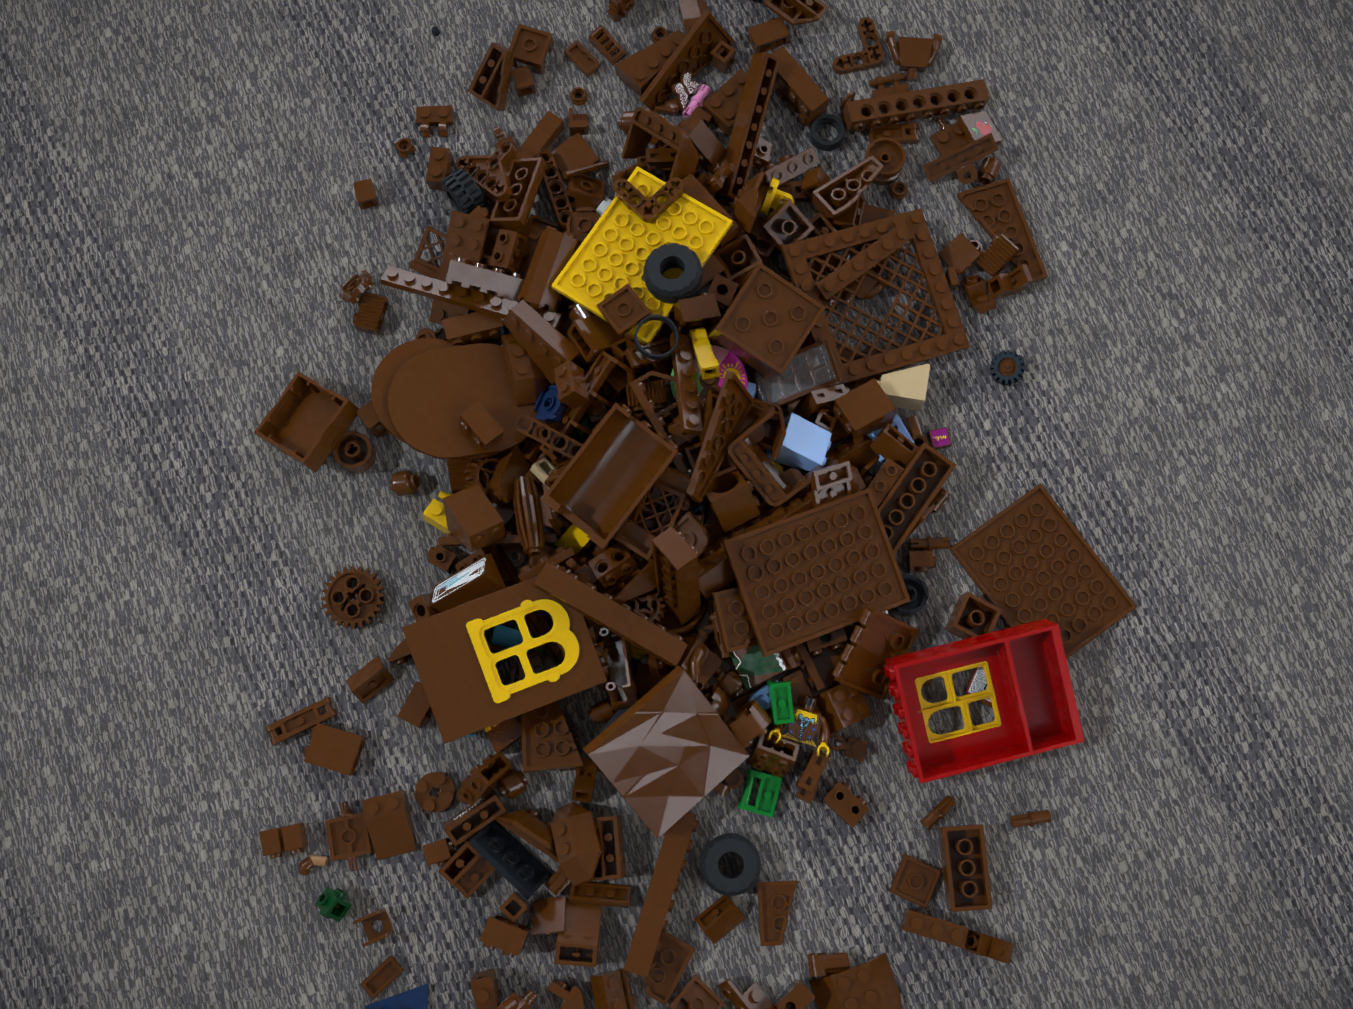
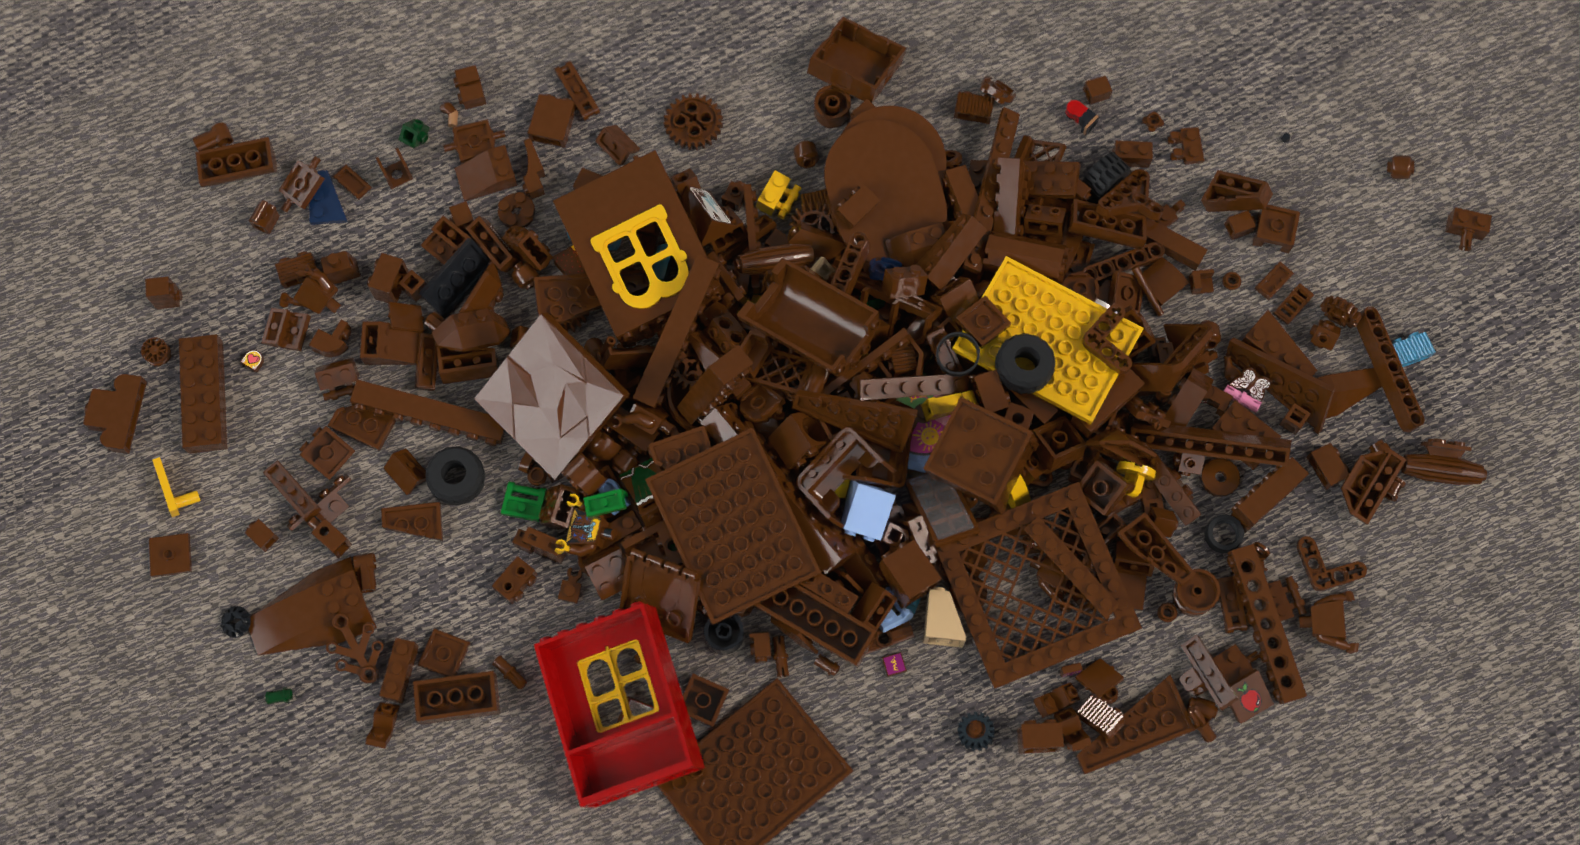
camera: 85 degrees right, 5 degrees down
(391, 211) = (1082, 115): none -> leg
(406, 773) = (535, 171): none -> reddish brown slope
(473, 518) = (769, 210): reddish brown slope -> none
(641, 20) = (1324, 334): none -> reddish brown brick
(659, 31) = (1317, 353): reddish brown plate -> none
(782, 126) = (1228, 469): none -> reddish brown tile
(831, 483) = (821, 531): reddish brown slope -> none
(913, 973) = (356, 651): none -> reddish brown plant
(1005, 171) = (1201, 724): none -> reddish brown axle
(1016, 310) = (1040, 737): none -> reddish brown brick
(1030, 818) = (506, 764): reddish brown axle -> none

